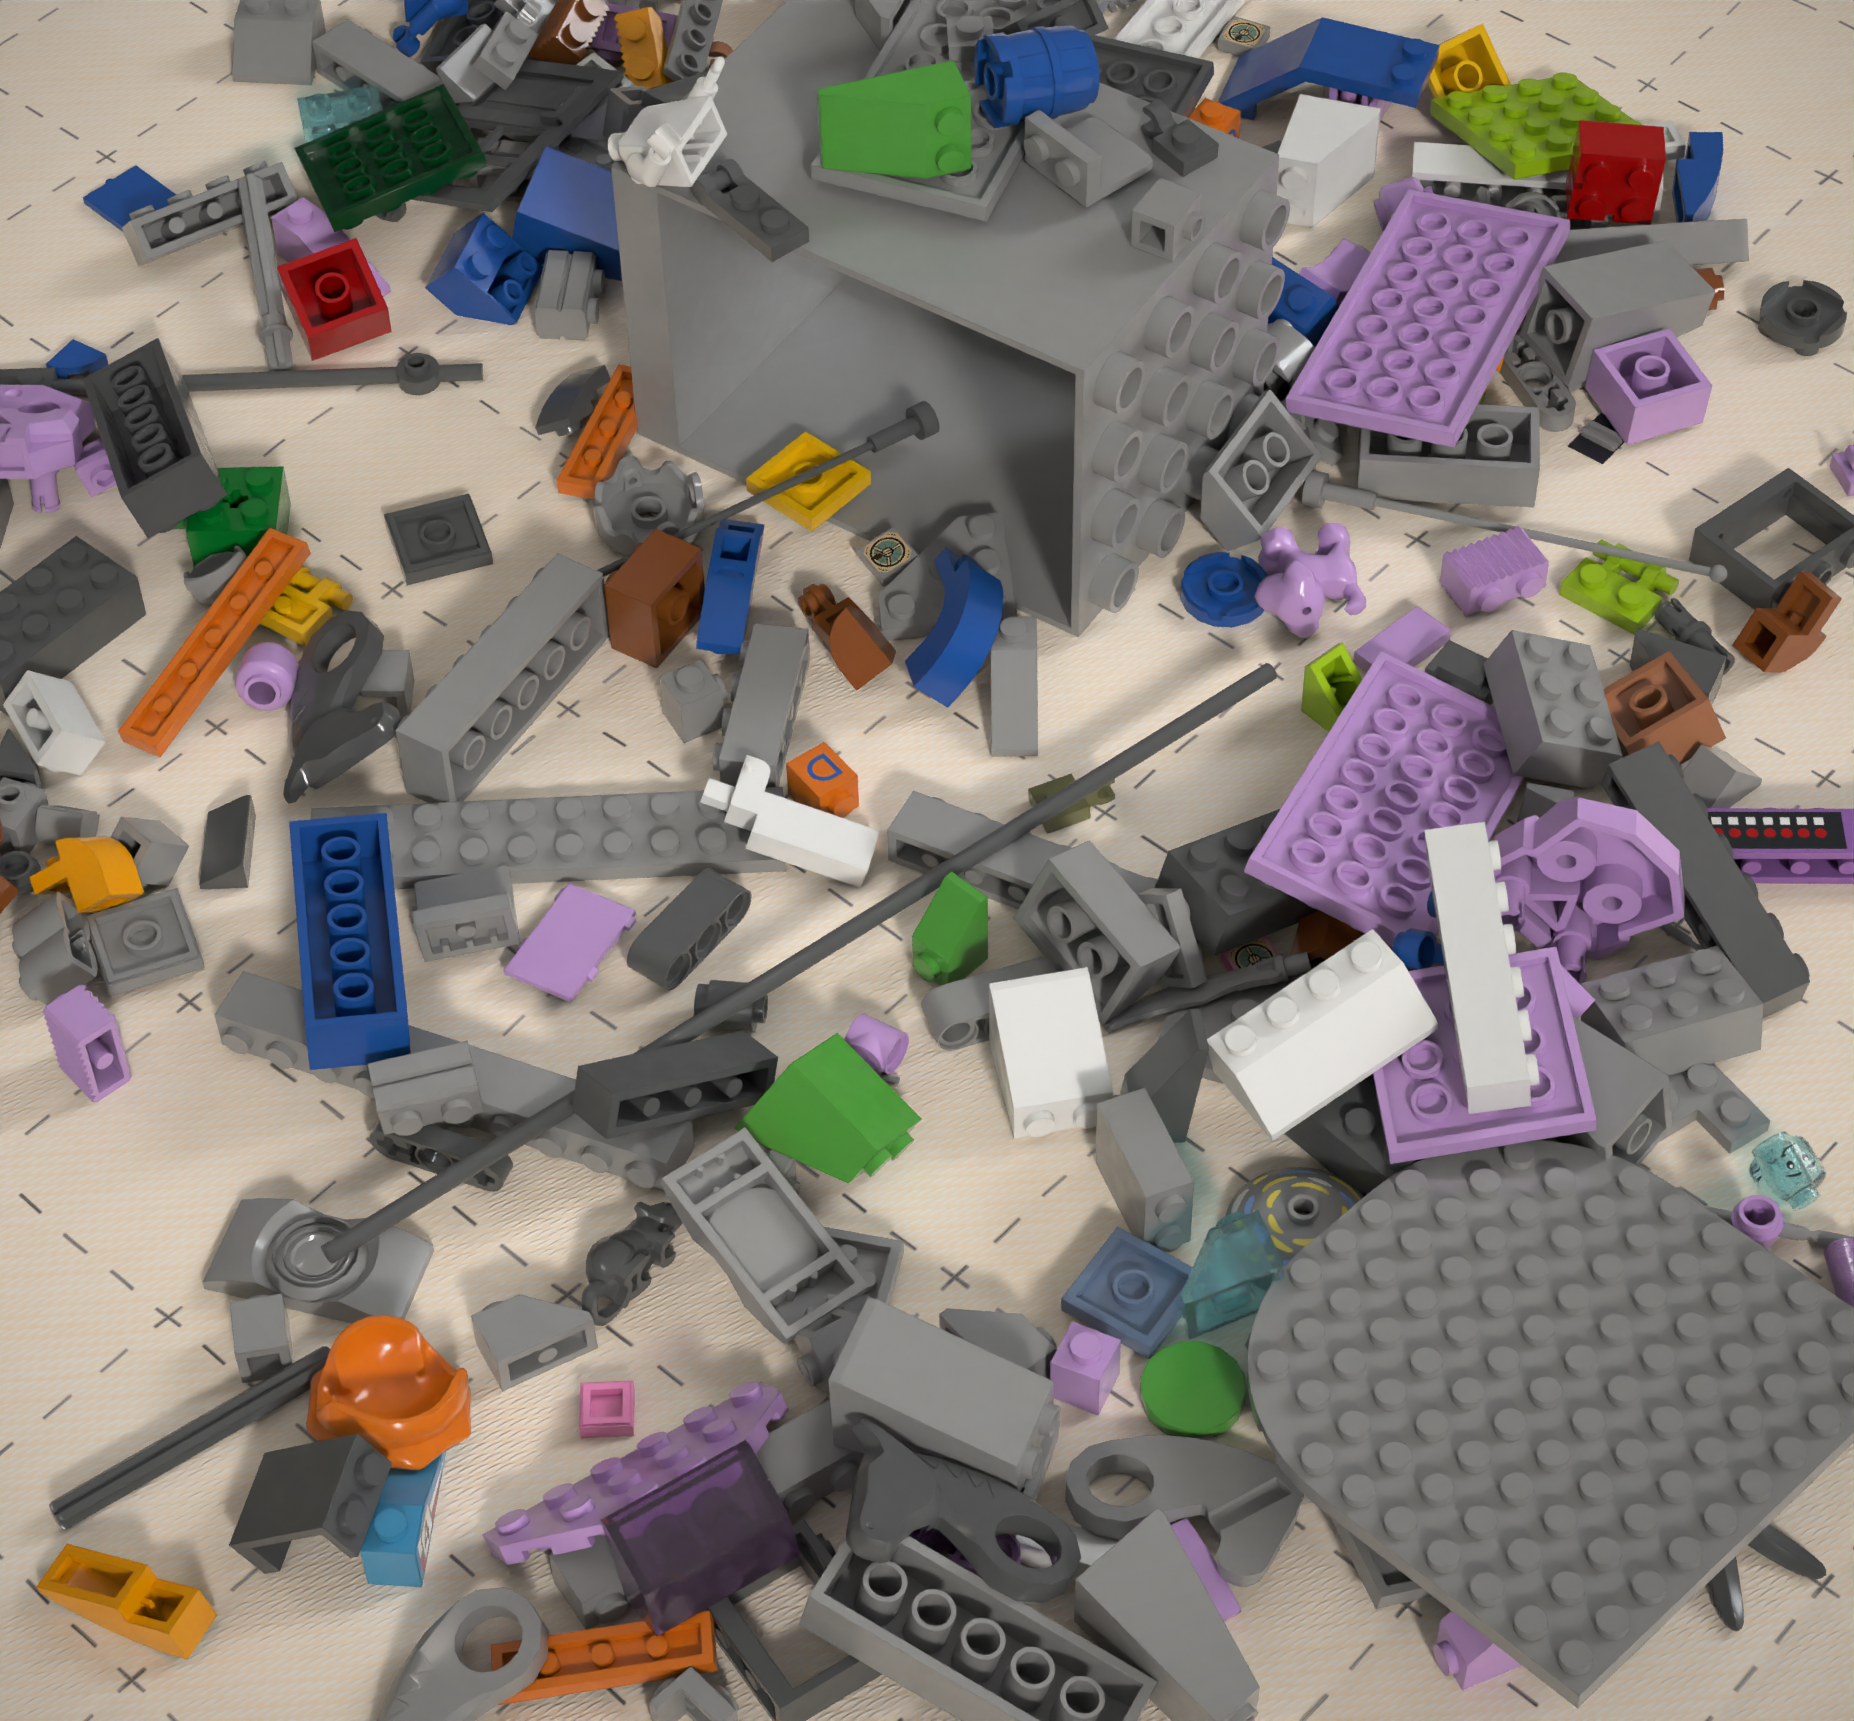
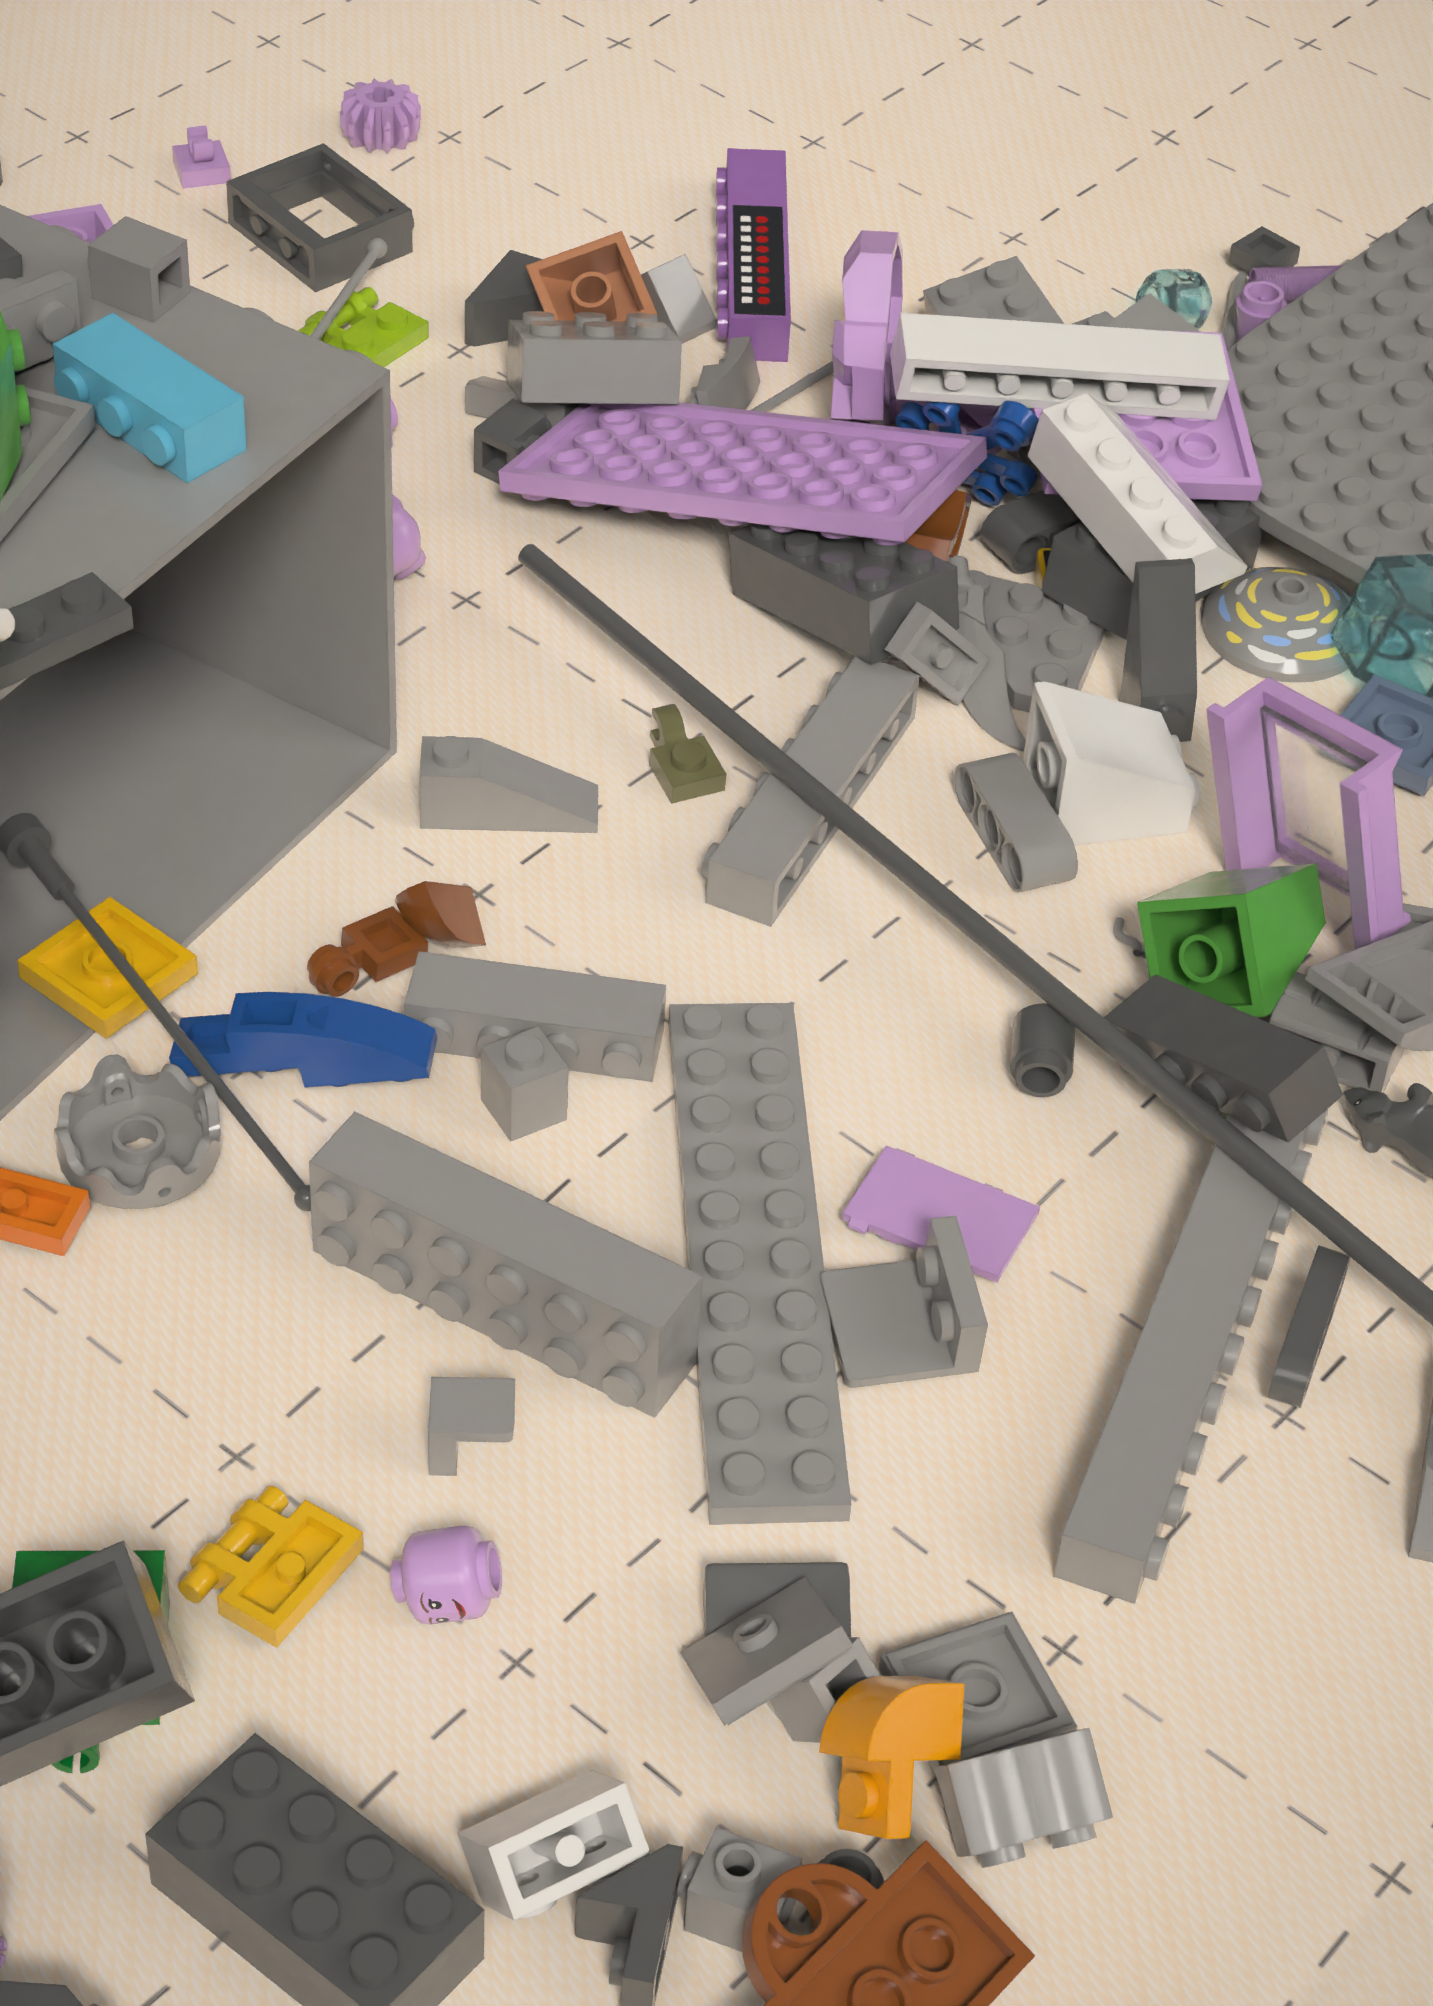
camera: 95 degrees left, 5 degrees down
(61, 822) = (753, 1808): light grey brick -> none
(87, 1043) = (1215, 1712): lavender brick -> none
(170, 815) = (766, 1651): none -> light grey plate
(213, 575) = (224, 1650): light grey hair -> none
(214, 642) = (385, 1634): orange plate -> none
(323, 727) = (538, 1501): dark grey animal -> none
(348, 941) = (1035, 1379): blue brick -> none
(425, 1089) = (1271, 1293): light grey brick -> none
(438, 539) = (143, 1397): dark grey tile -> none
(655, 597) = (332, 1071): dark orange brick -> none
(689, 929) = (918, 1090): dark grey beam -> none
(791, 829) = (762, 986): white piece -> none
(823, 781) = (675, 954): orange brick -> none
(877, 1043) = (1095, 926): lavender axle -> none
(887, 555) = (251, 903): tile -> none
(912, 1154) = (1310, 791): none -> lavender piece
(916, 596) = (306, 838): light grey plate -> none
(952, 933) = (937, 827): bright green slope -> none
(963, 632) = (460, 797): blue arch -> none
(1004, 236) = (151, 397): none -> medium azure brick
(1092, 919) = (939, 705): light grey slope -> none
(1144, 1170) = (1299, 656): light grey brick -> none
(1329, 685) = (526, 522): lime slope -> none
(1407, 639) = (444, 492): lavender tile -> none
(1690, 630) = (445, 291): dark grey pin -> none
(1718, 897) = (805, 284): dark grey brick -> none
(1792, 631) = (452, 221): dark orange brick -> none

